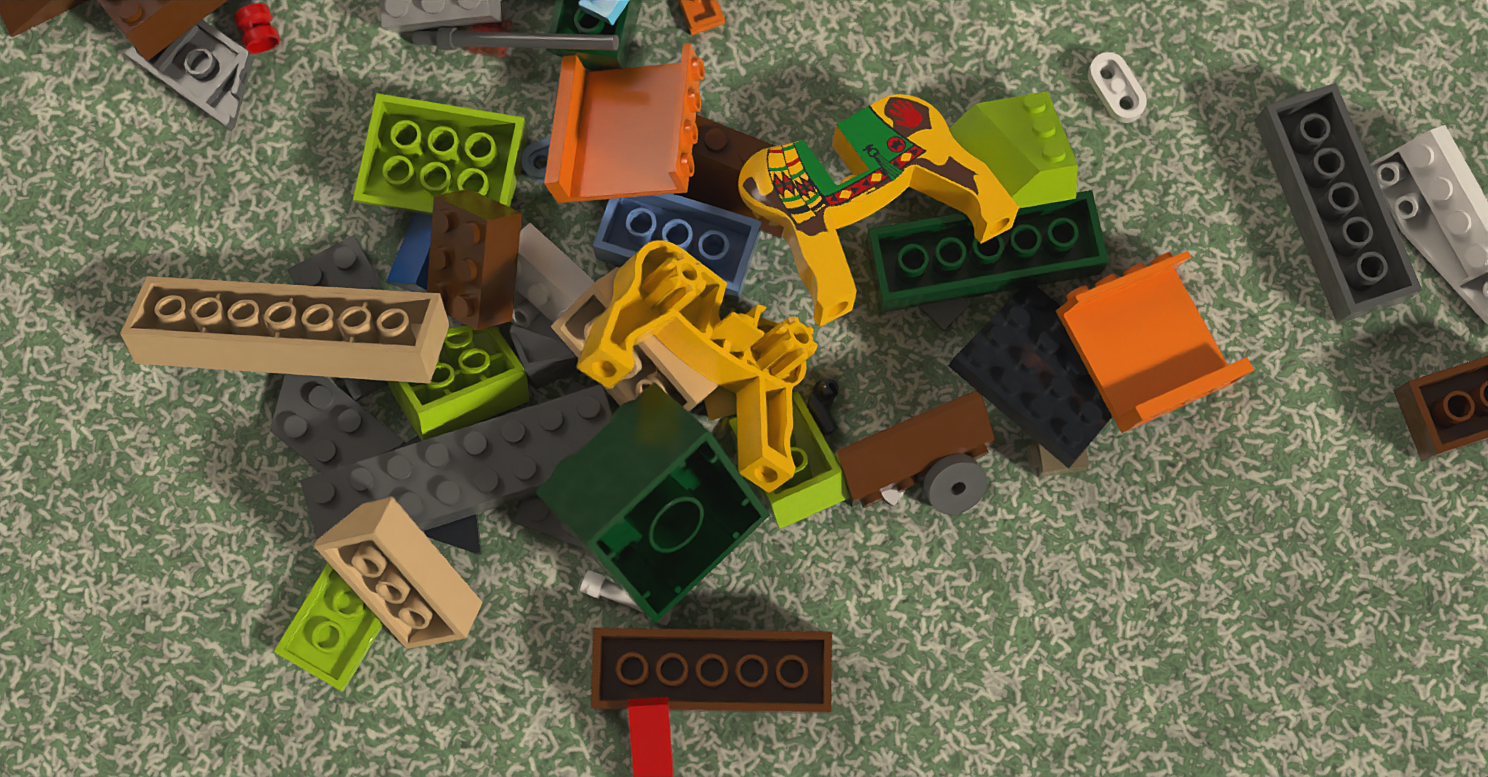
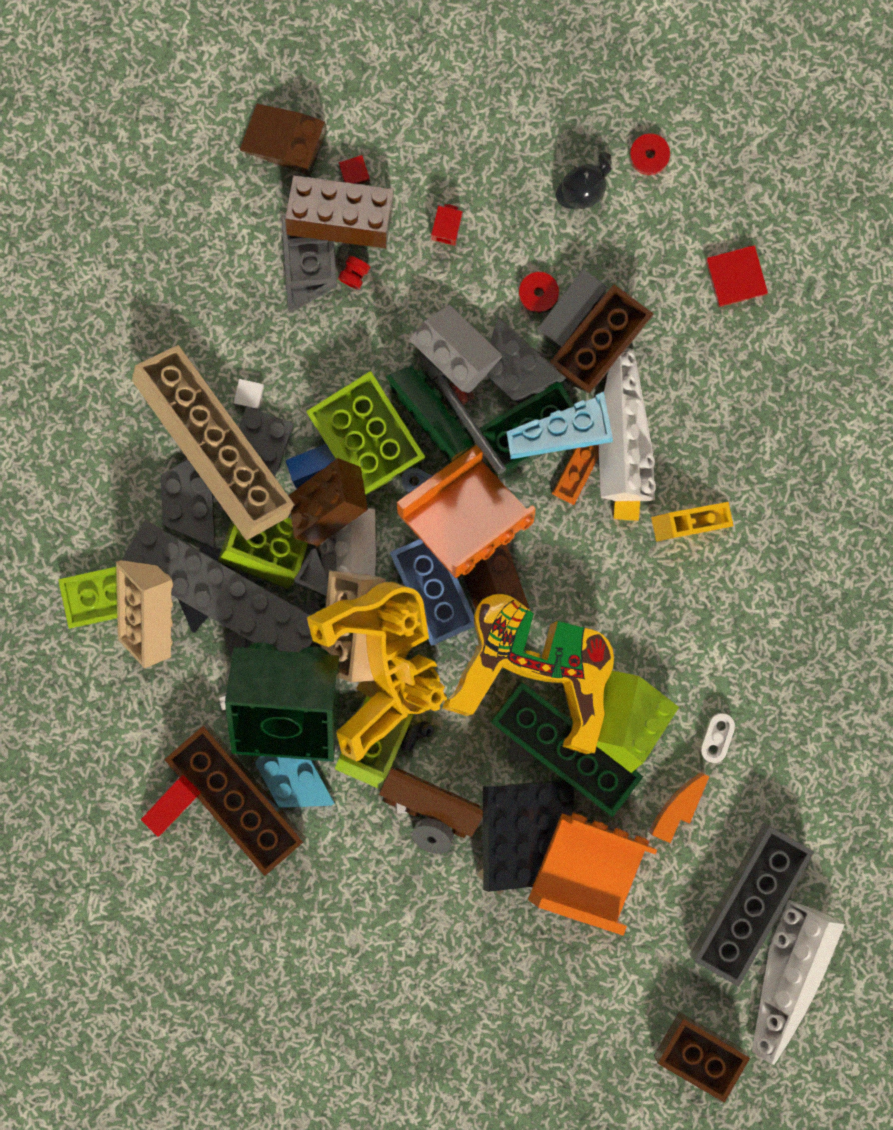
camera: 50 degrees right, 10 degrees up
(276, 256) = (249, 394): none -> white tile
(482, 79) = (429, 412): none -> dark green slope
(749, 589) = (294, 782): none -> medium azure wing
(1160, 192) = (679, 807): none -> orange slope

